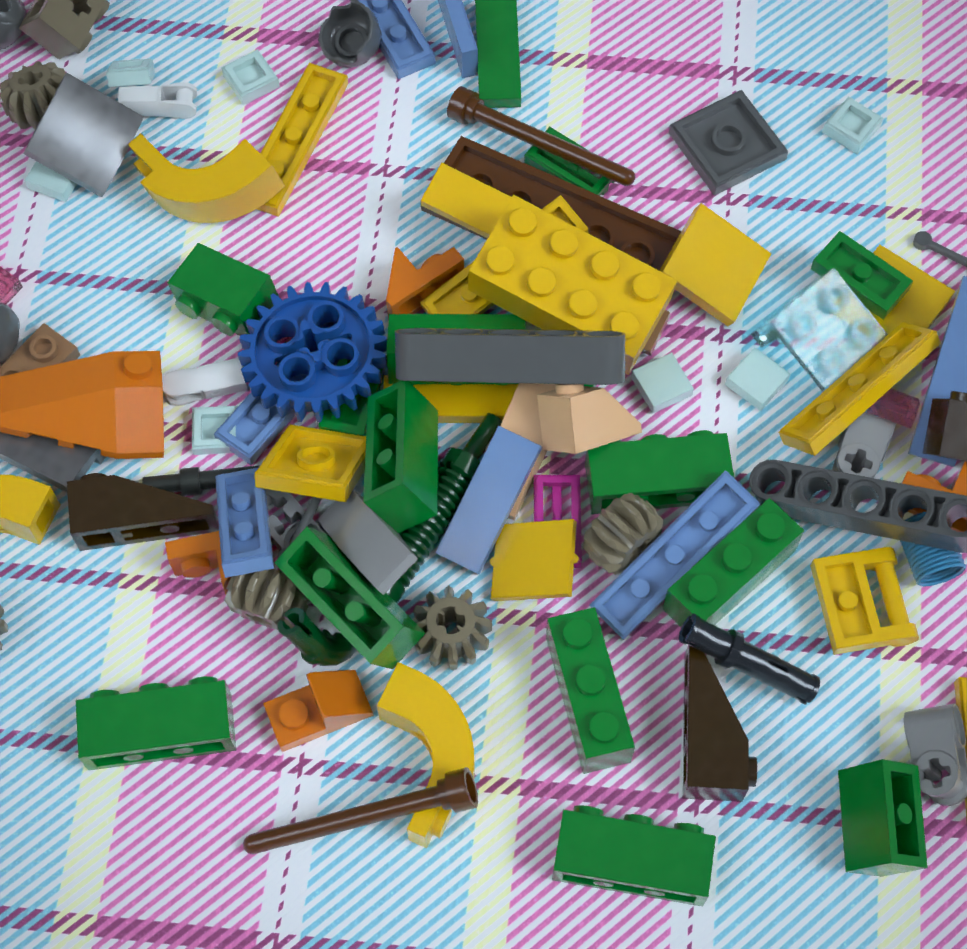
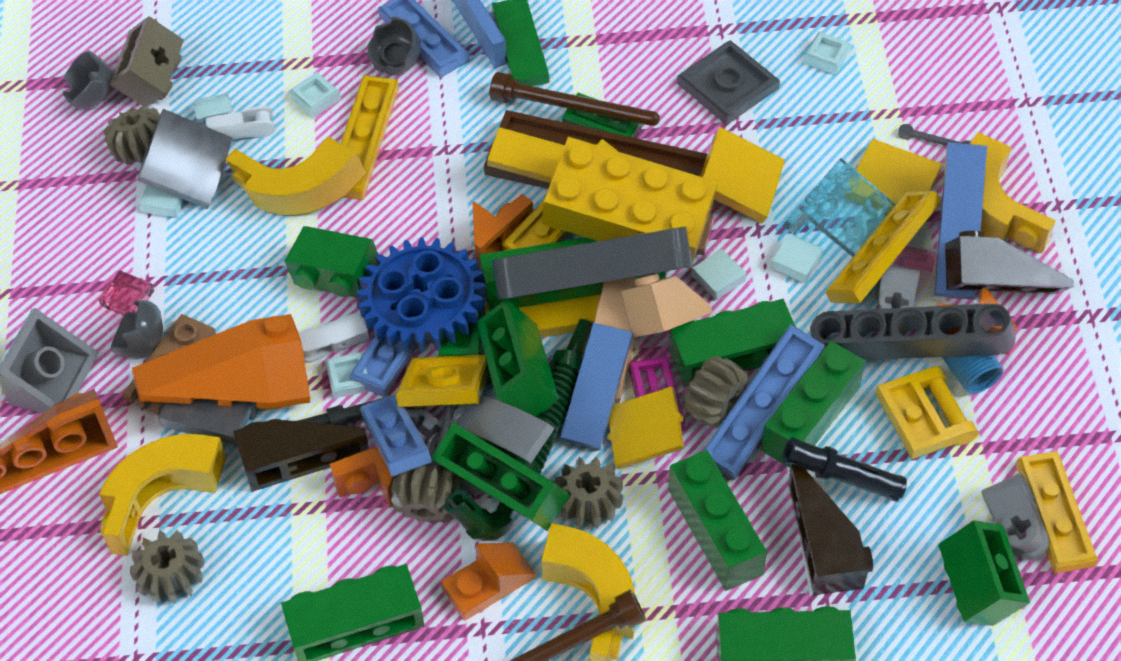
camera: 10 degrees left, 10 degrees down
(869, 277) = (871, 161): green plate -> none

